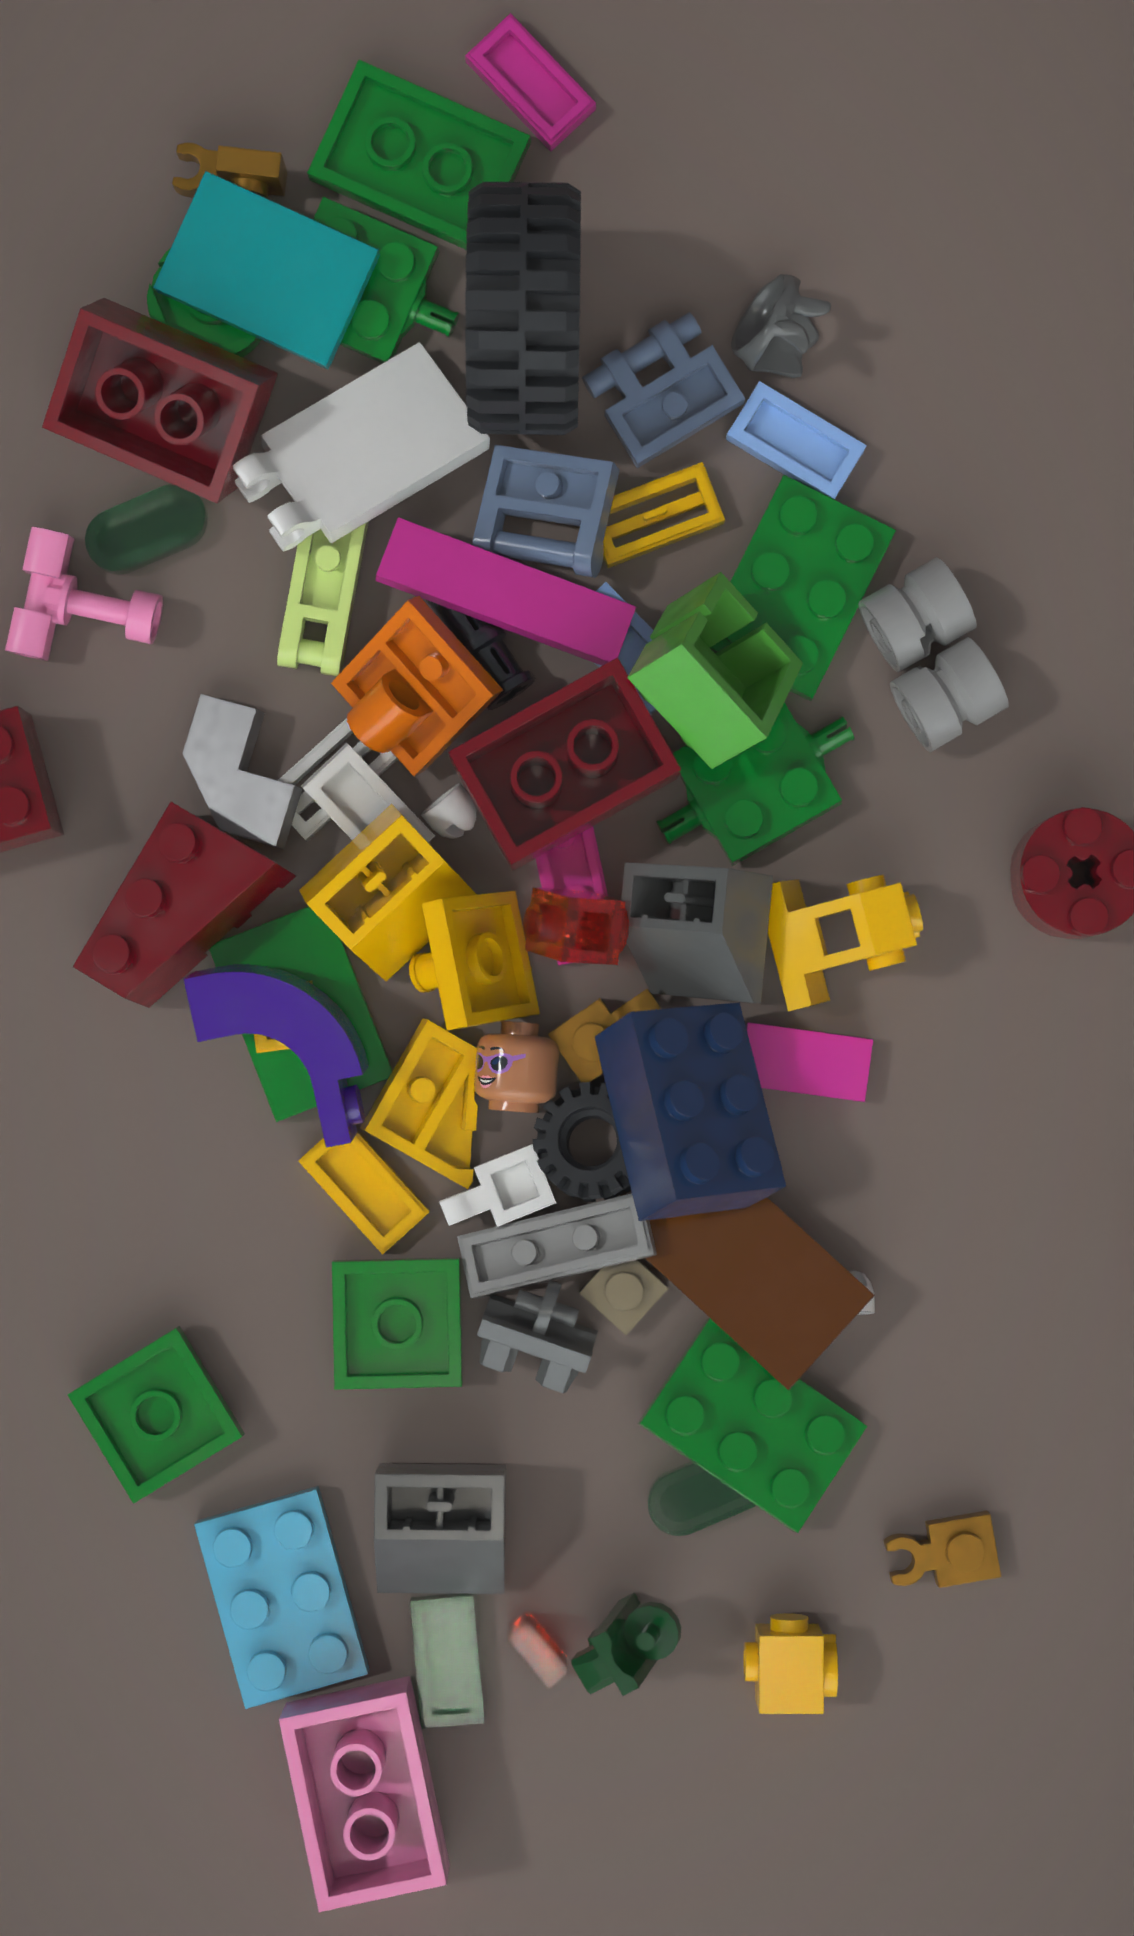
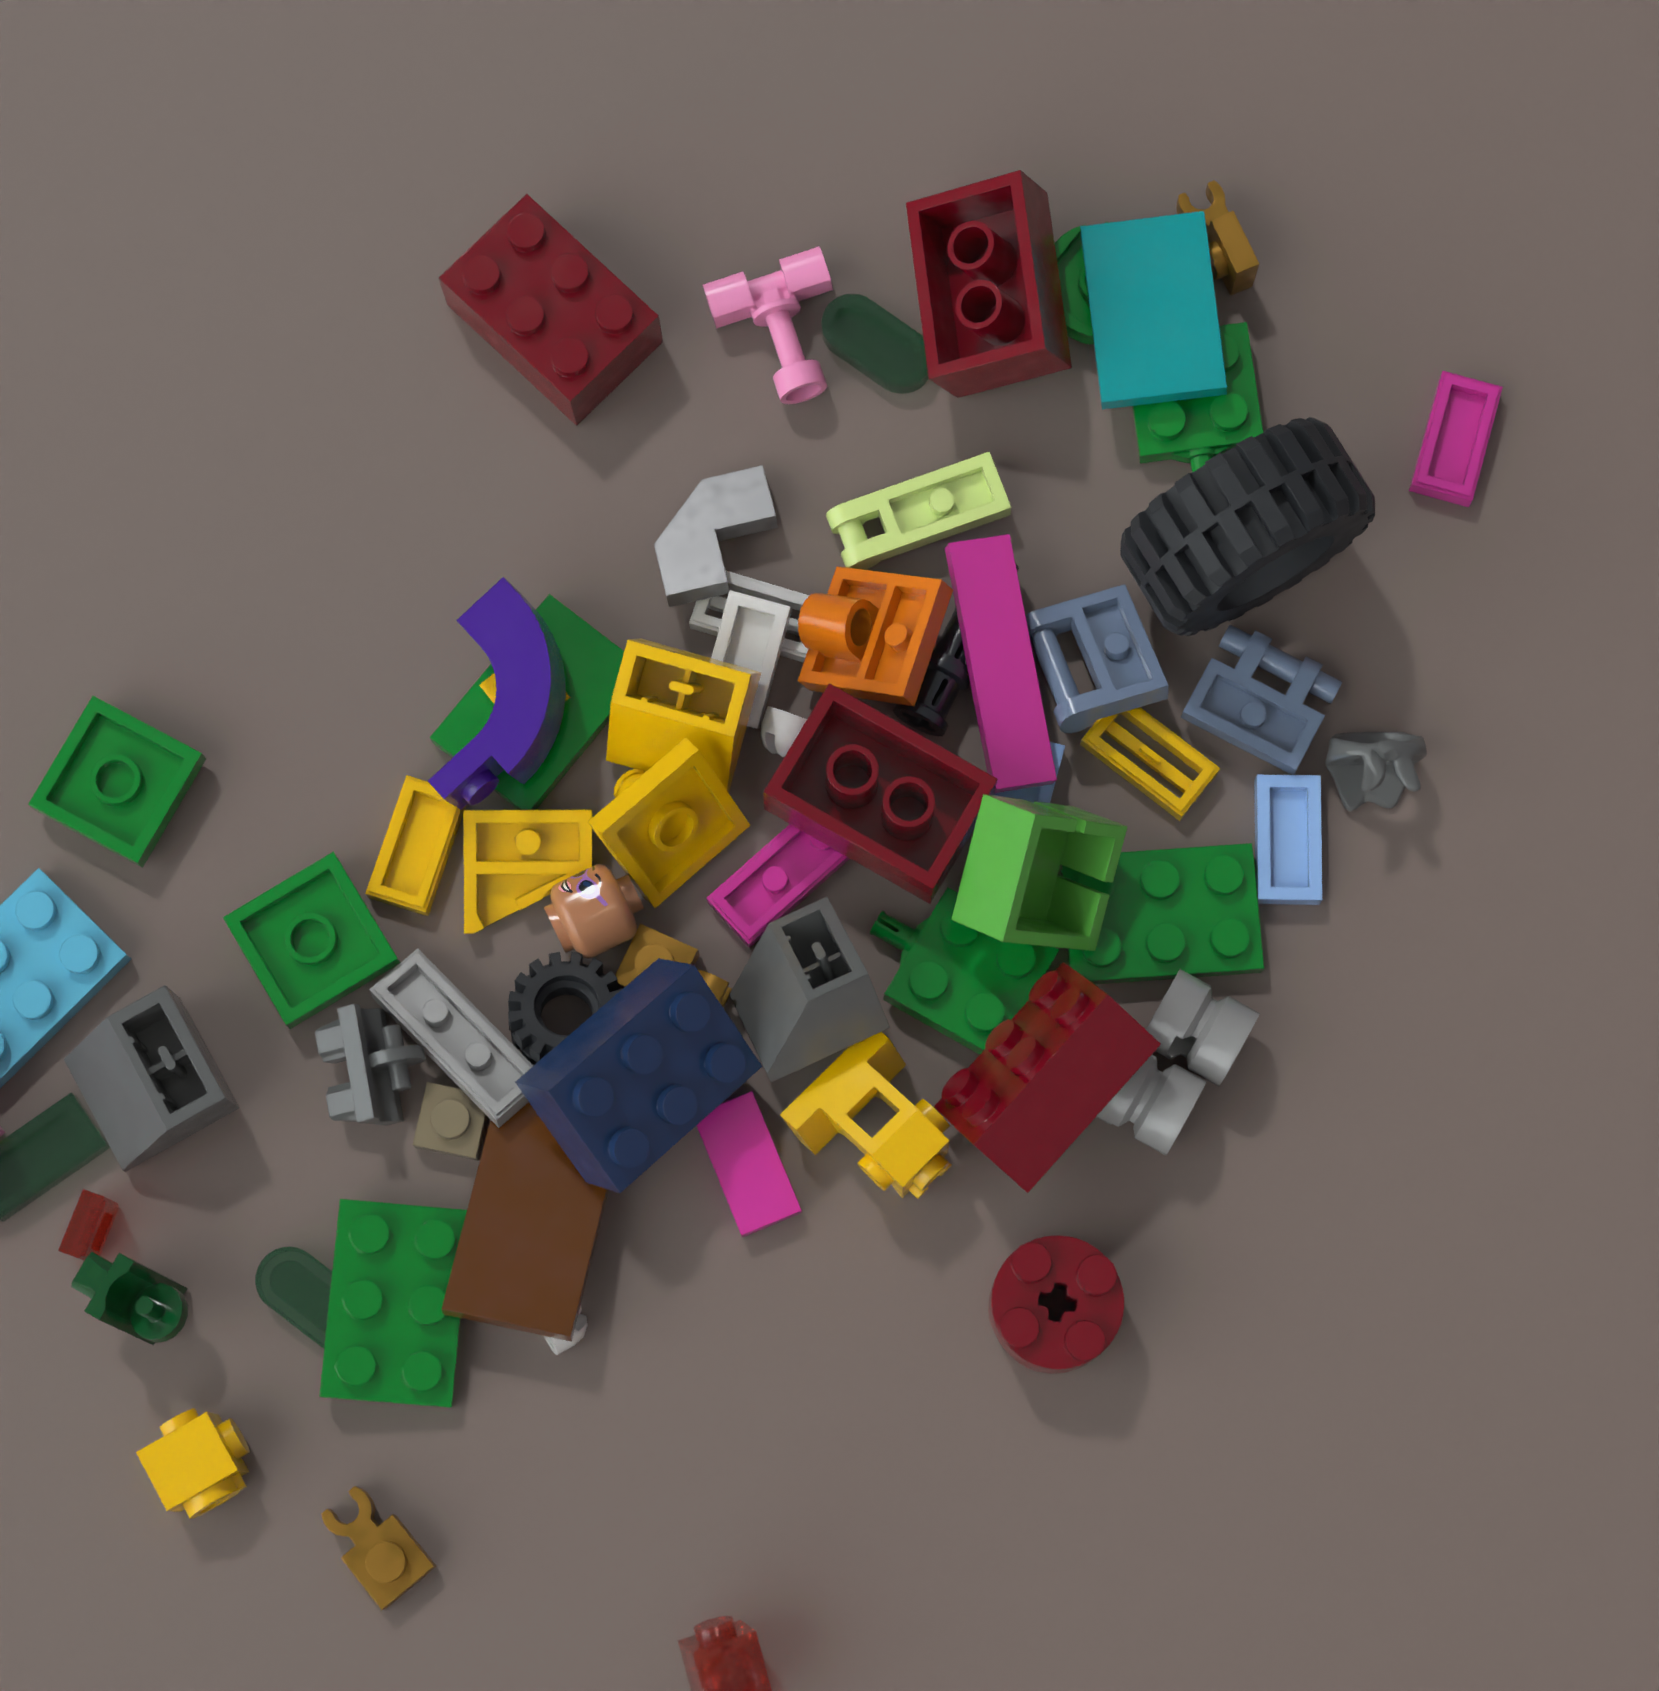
camera: 60 degrees right, 10 degrees down
(175, 906) = (566, 544): dark red wedge -> none
(362, 449) = (1047, 473): white tile -> none
(413, 152) = (1334, 363): green plate -> none
(508, 1187) = (482, 965): white plate -> none
(575, 926) = (745, 884): clear red brick -> none
(892, 769) = (1045, 1075): none -> dark red brick

